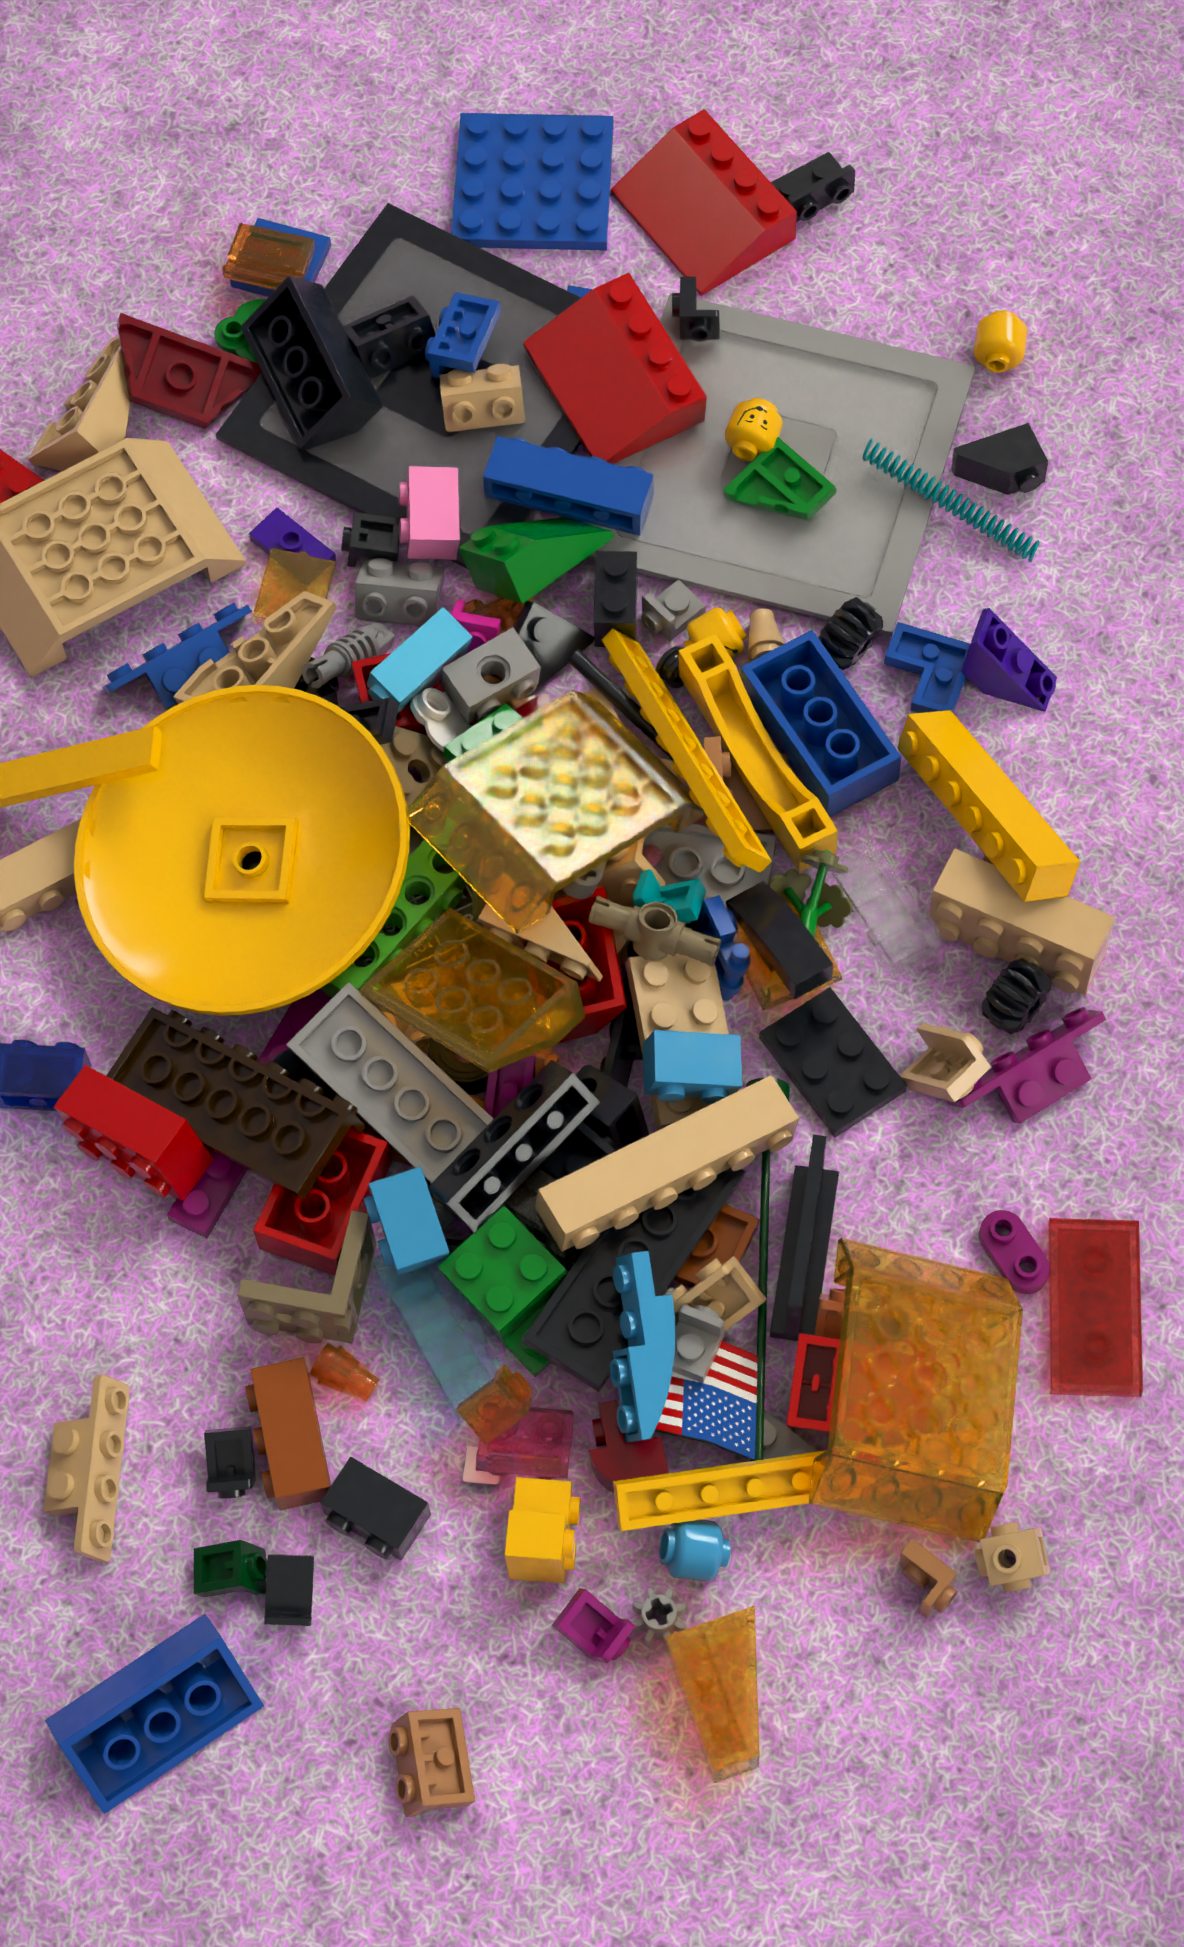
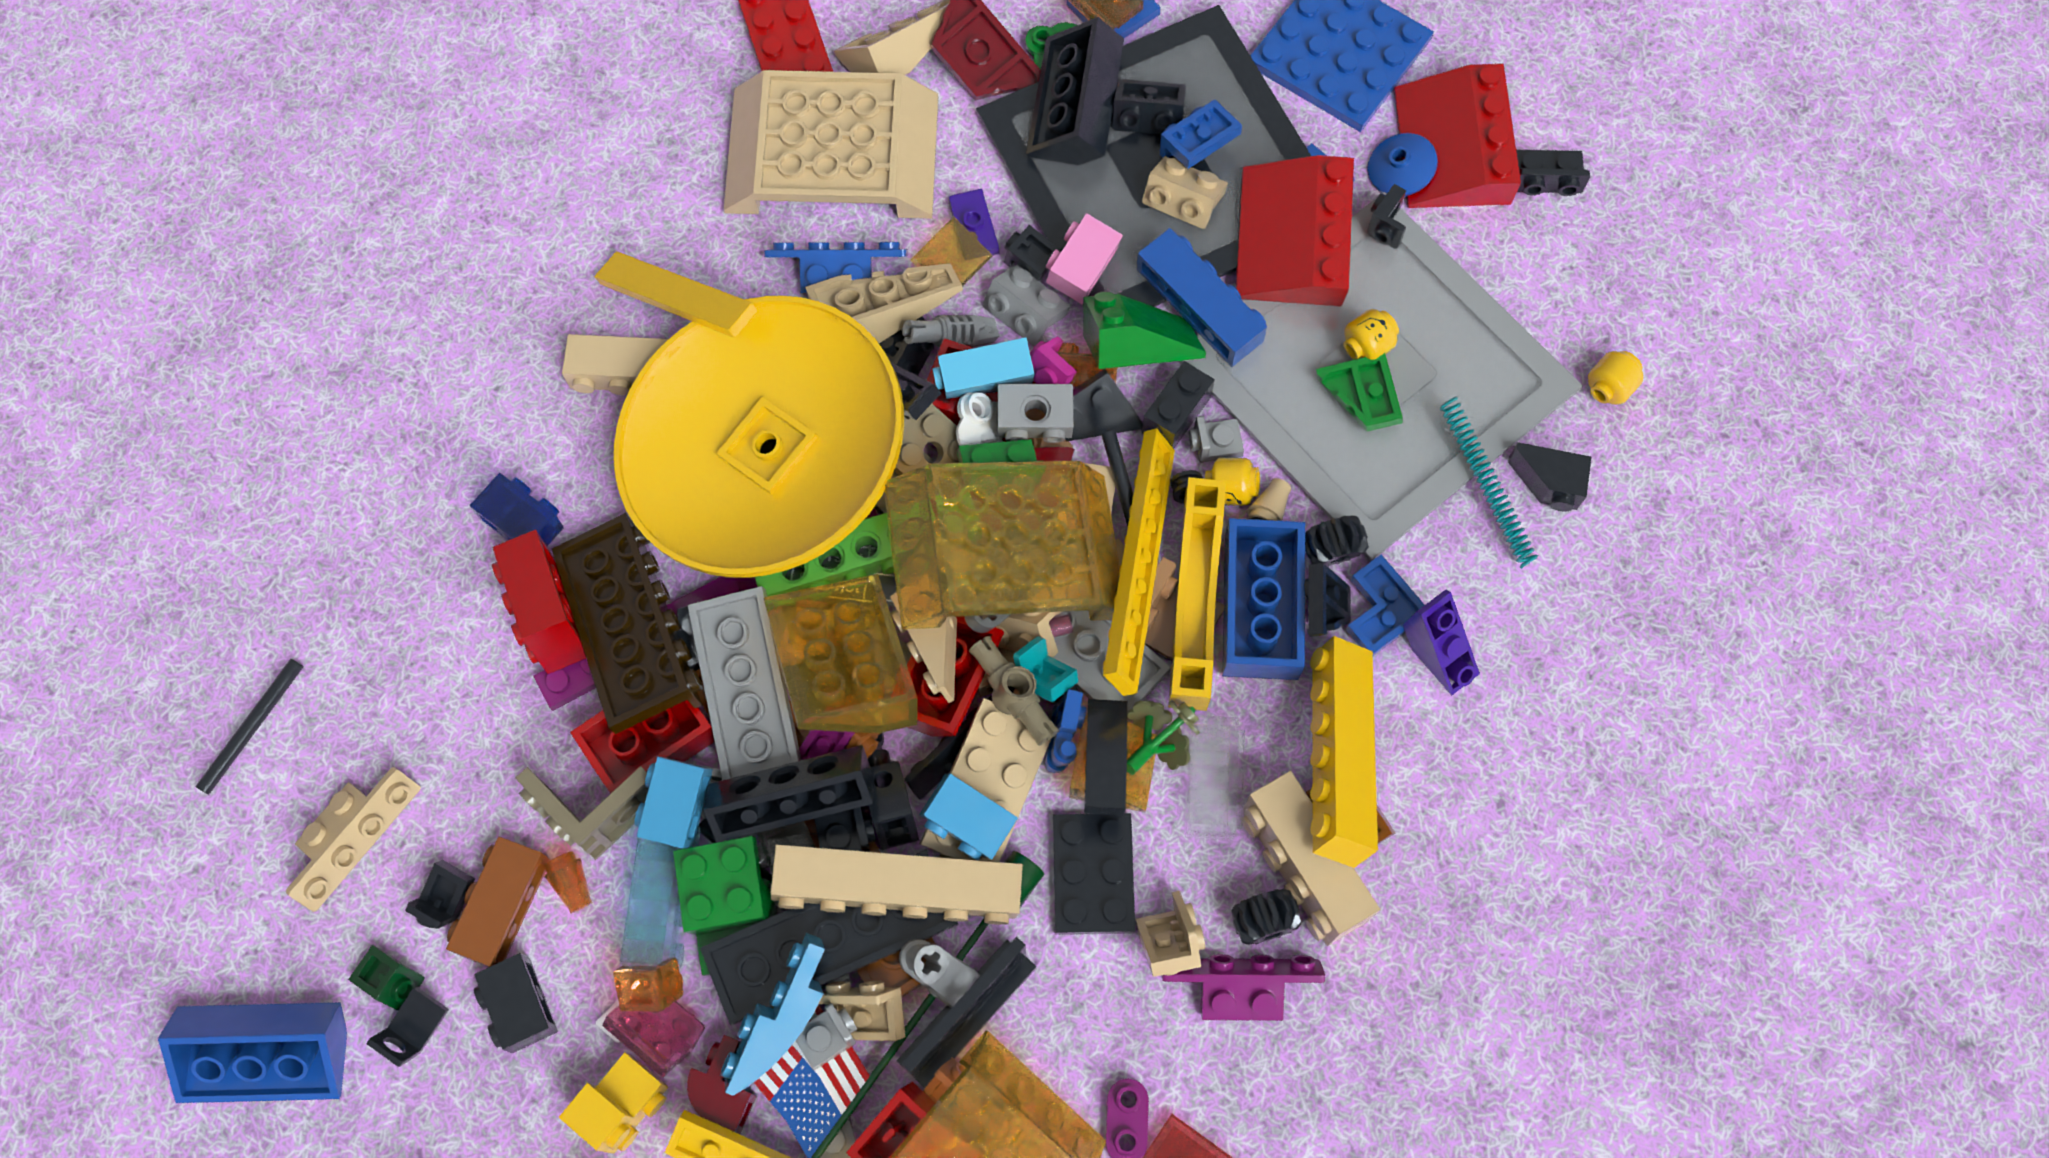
camera: 30 degrees right, 5 degrees up
(686, 258) = (1412, 172): none -> blue dish
(758, 1221) = (941, 974): none -> light grey piece
(878, 685) = (1328, 600): none -> black wing

